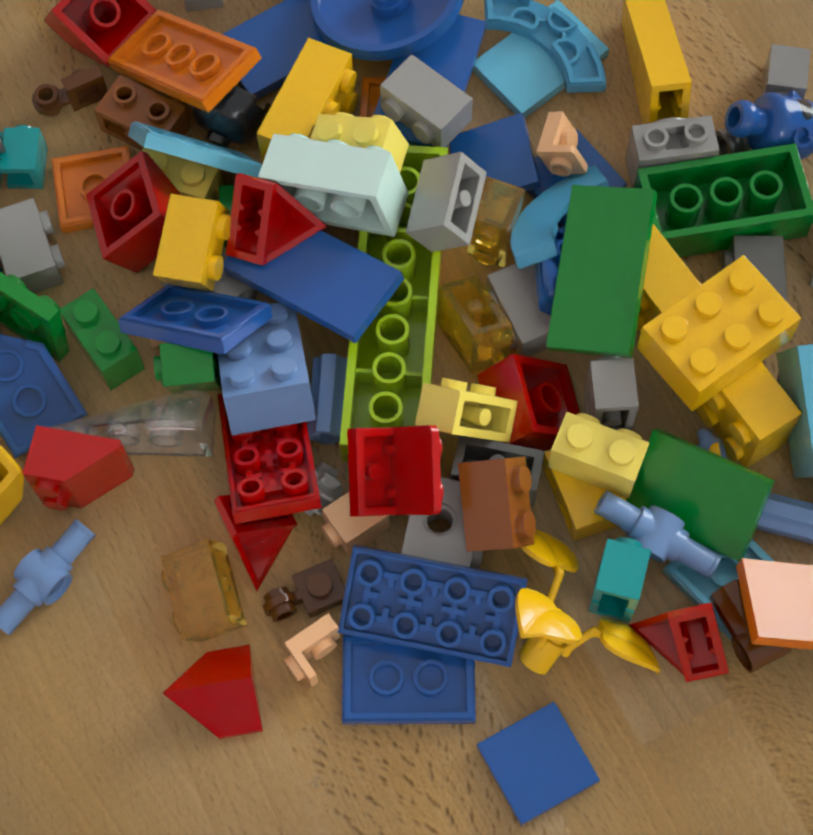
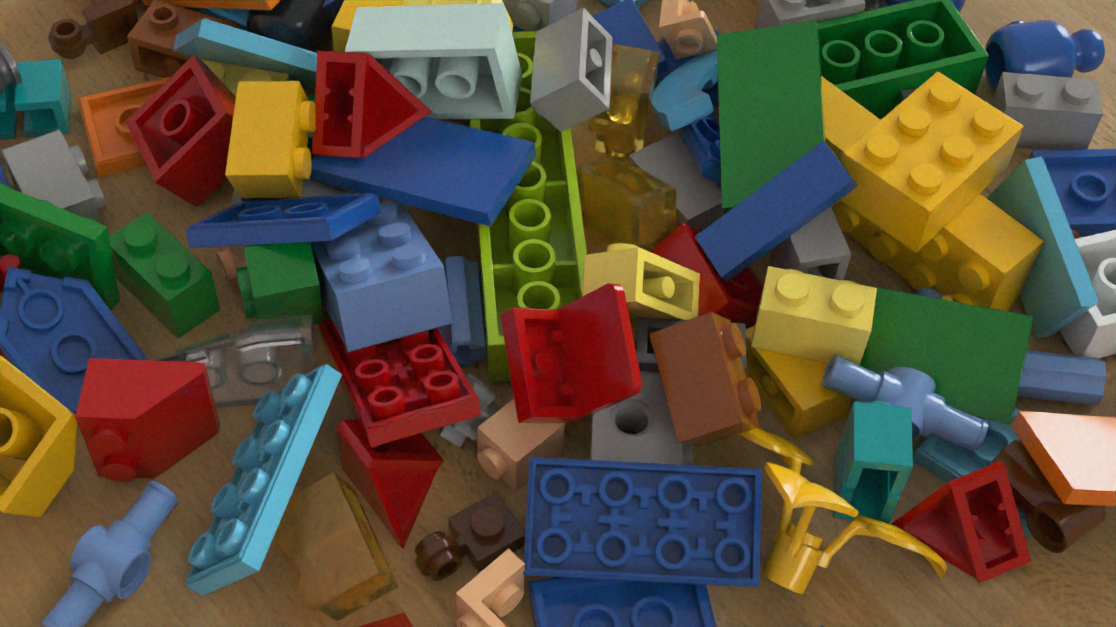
camera: 15 degrees left, 15 degrees down
(157, 531) = (262, 484): none -> medium azure tile
(584, 361) = (775, 211): none -> blue tile

